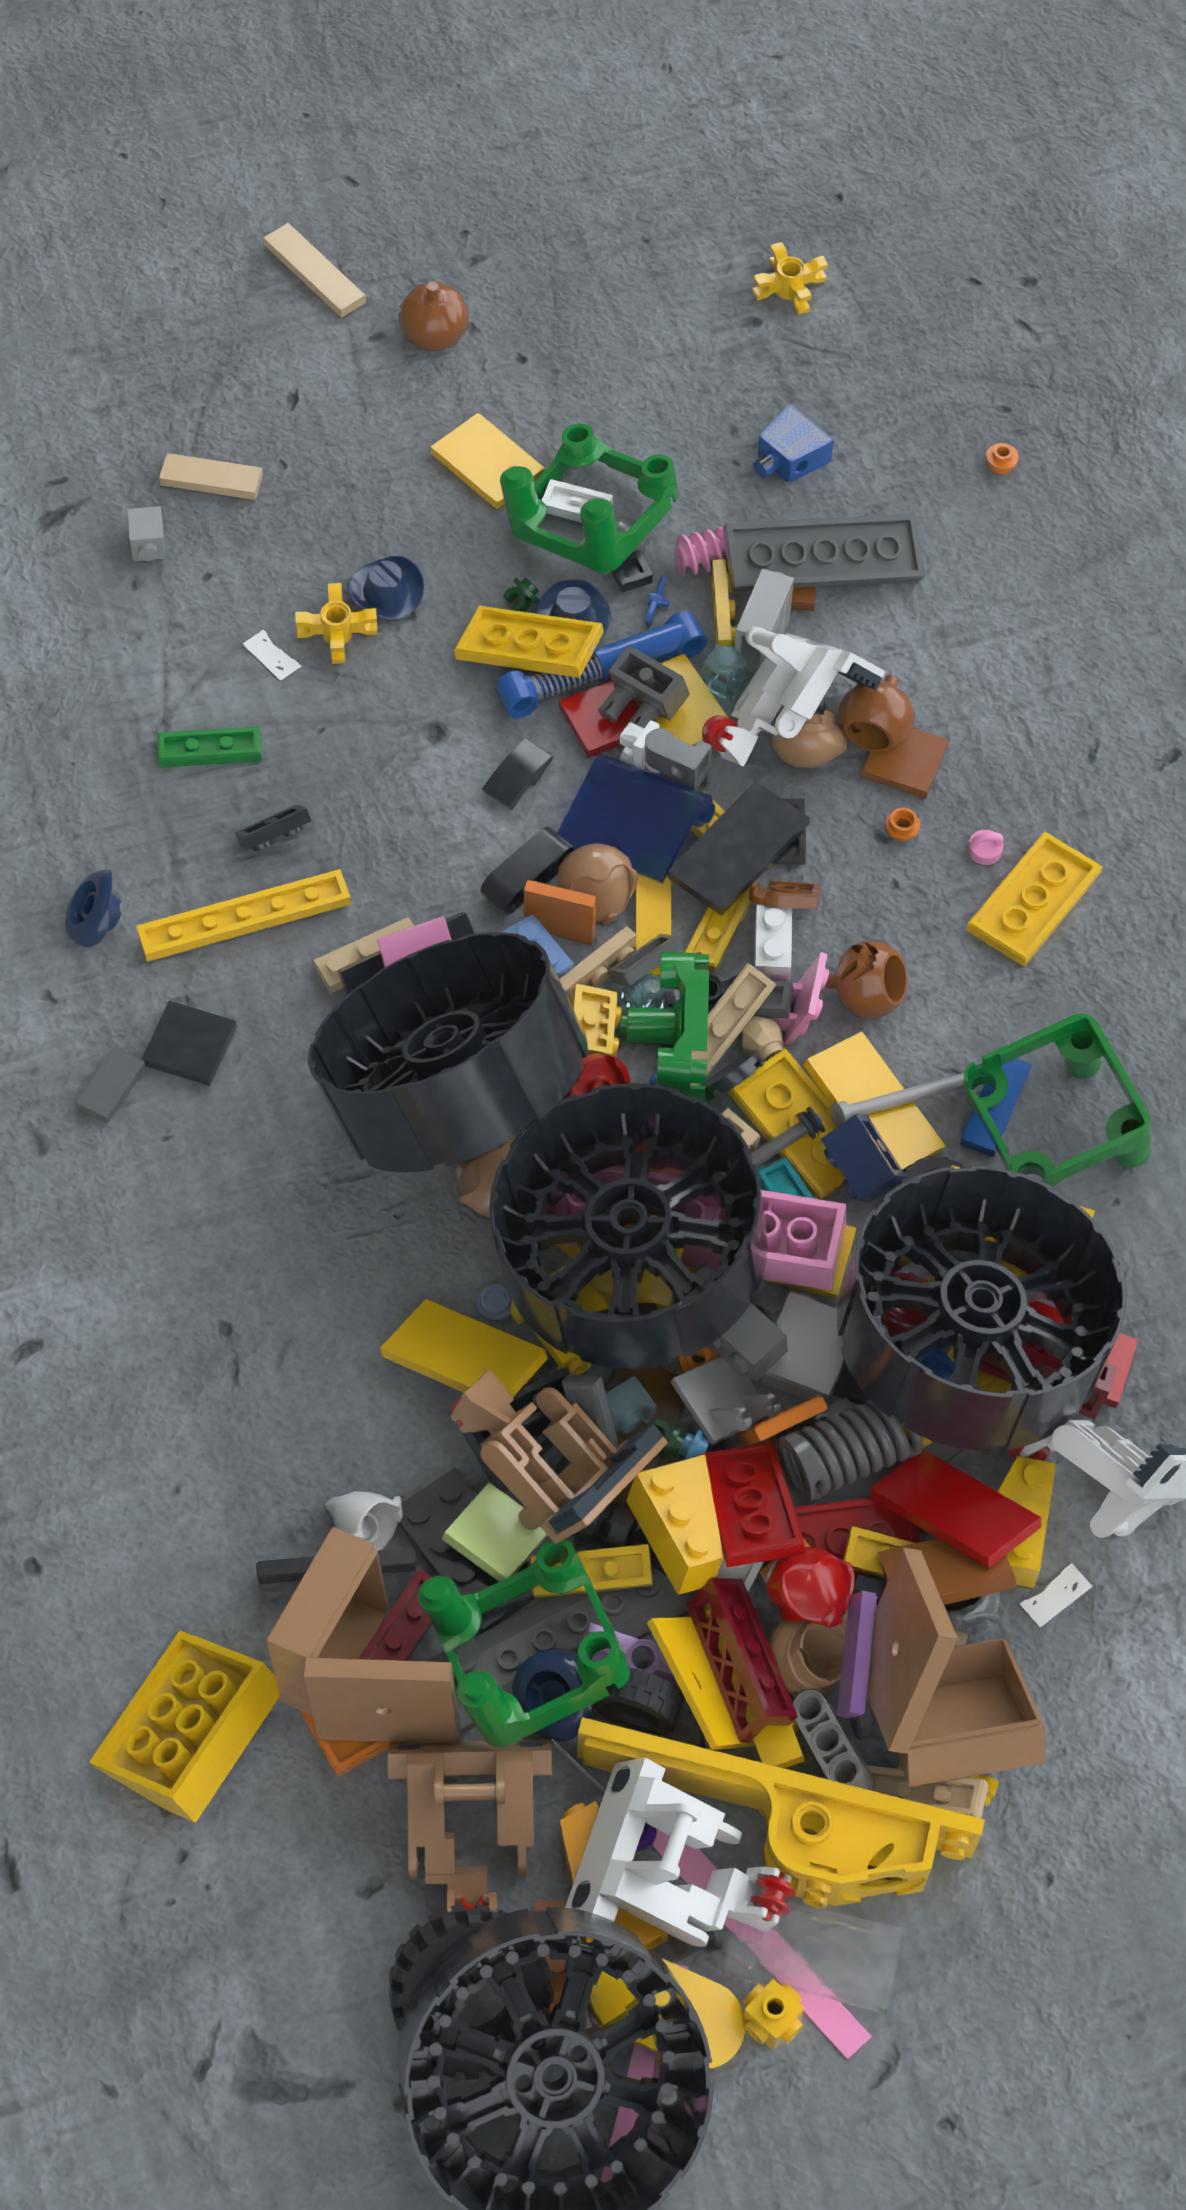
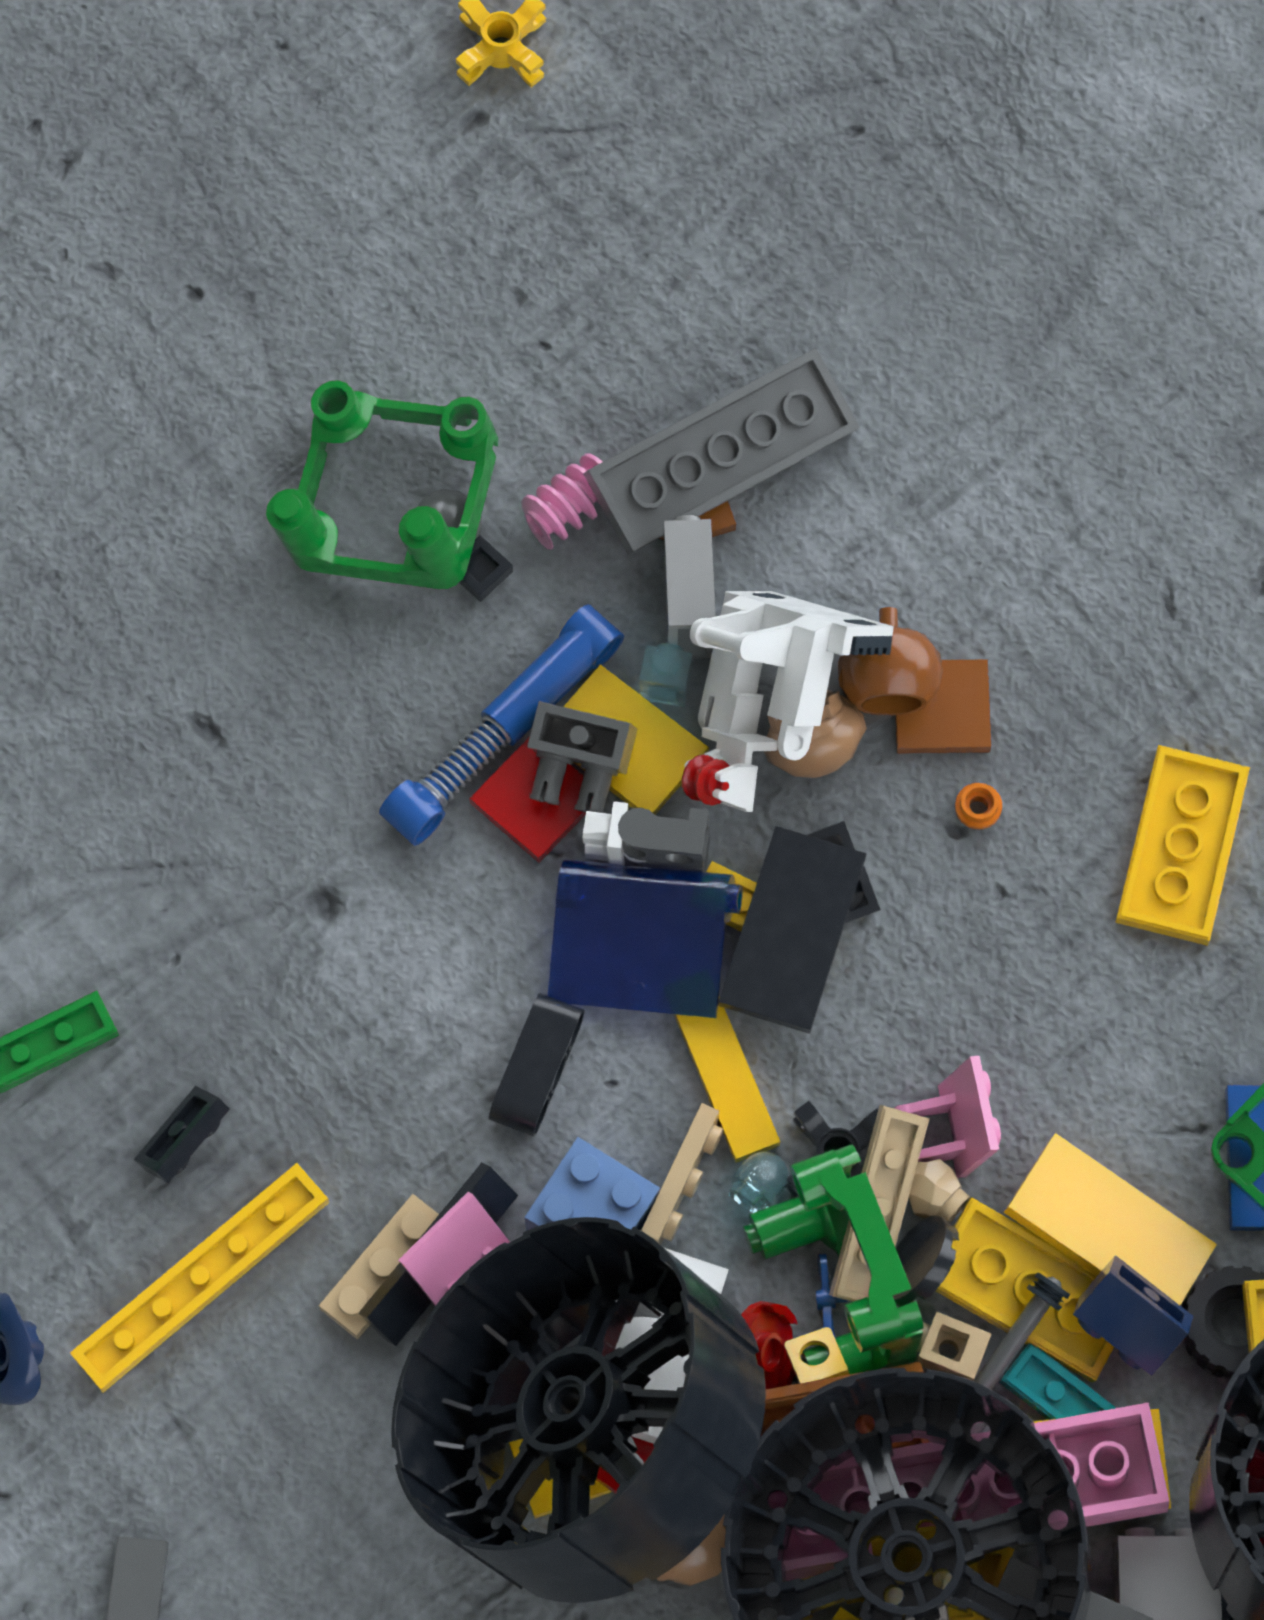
camera: 20 degrees left, 10 degrees up
(189, 1043) = (210, 1487): black tile -> none
(272, 655) = (62, 873): white sticker -> none
(336, 623) = (162, 784): yellow pin -> none
(389, 585) = (172, 715): dark blue hat -> none
(433, 316) = (57, 281): dark orange piece -> none
(480, 455) = (218, 469): yellow tile -> none
(516, 772) = (461, 926): black slope -> none
(526, 591) = (359, 652): dark green plate -> none
(529, 641) = (396, 730): yellow tile -> none
(561, 911) = (609, 1117): orange tile -> none
(567, 499) = (366, 492): white plate -> none
(577, 601) = (430, 658): dark blue hat -> none
(598, 1017) = (715, 1251): yellow bracket -> none
(601, 873) = (633, 1049): medium nougat helmet -> none
(644, 959) = (744, 1140): dark grey tile -> none
(656, 601) = (530, 595): blue piece -> none
(717, 931) = (809, 1058): yellow tile -> none
(722, 607) = (624, 581): yellow plate -> none
(773, 942) = (892, 1052): white brick -> none
(778, 1002) = (939, 1134): dark grey tile -> none
(786, 894) = (882, 973): dark orange tile -> none
(792, 447) = (610, 300): blue torso -> none
(842, 1111) = (1085, 1264): light grey bar -> none
(870, 979) = (1036, 1055): dark orange piece -> none
(985, 847) = (1093, 795): bright pink tile -> none
(1002, 458) = (882, 220): orange plate -> none

